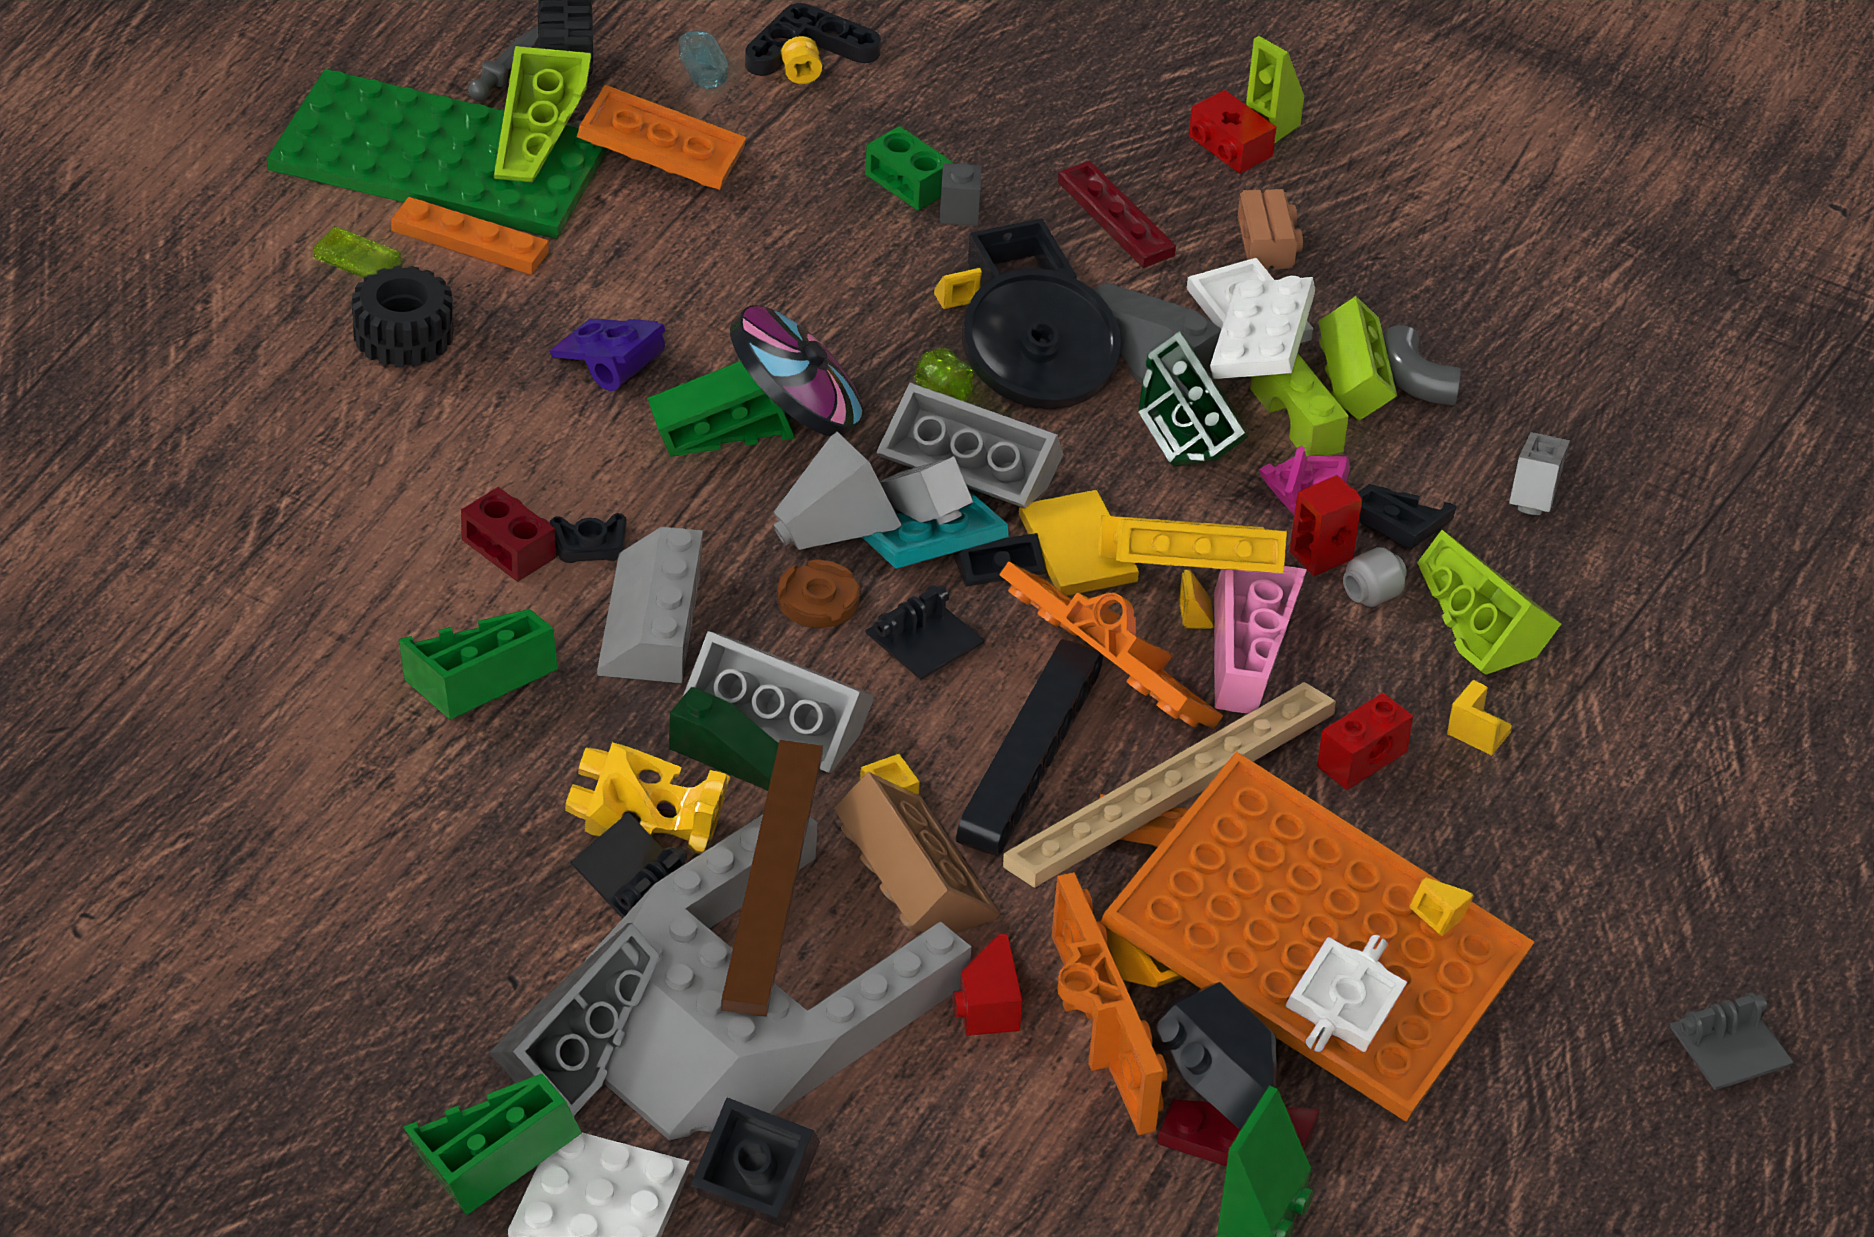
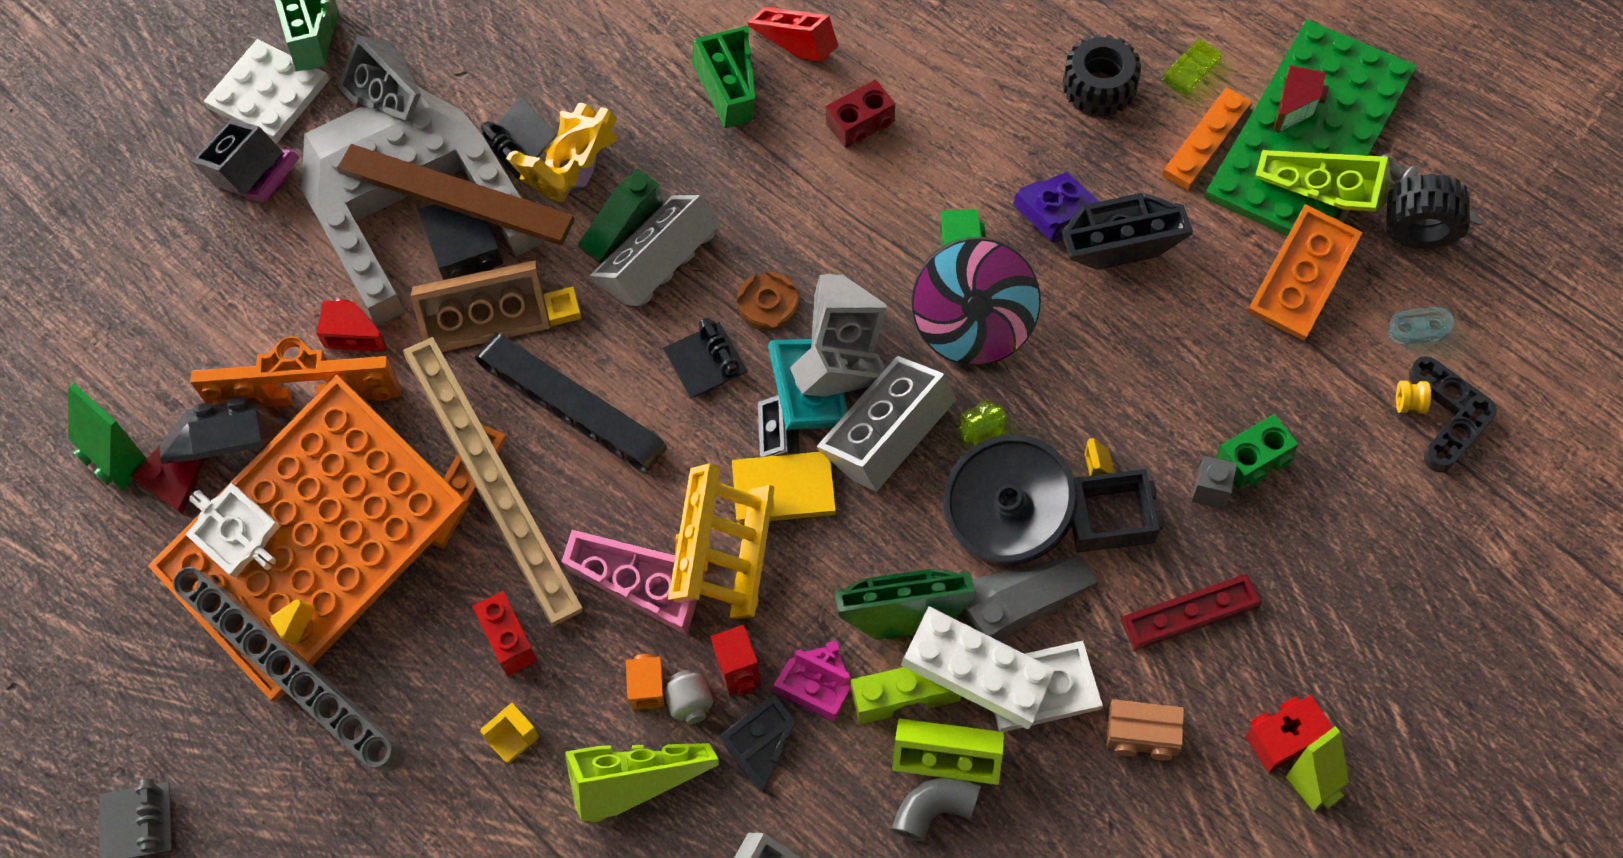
camera: 110 degrees right, 20 degrees up
(380, 612) = (800, 33): none -> red slope
(417, 142) = (1300, 96): none -> dark red slope
(589, 538) = (851, 168): black piece -> none
(643, 270) = (1125, 230): none -> black wedge
(653, 607) = (767, 193): light grey slope -> none
(828, 903) = (459, 242): none -> black brick
(1117, 641) = (595, 492): orange plate -> none
(1373, 612) = (645, 682): none -> orange brick
(1496, 909) = (299, 675): none -> dark grey beam

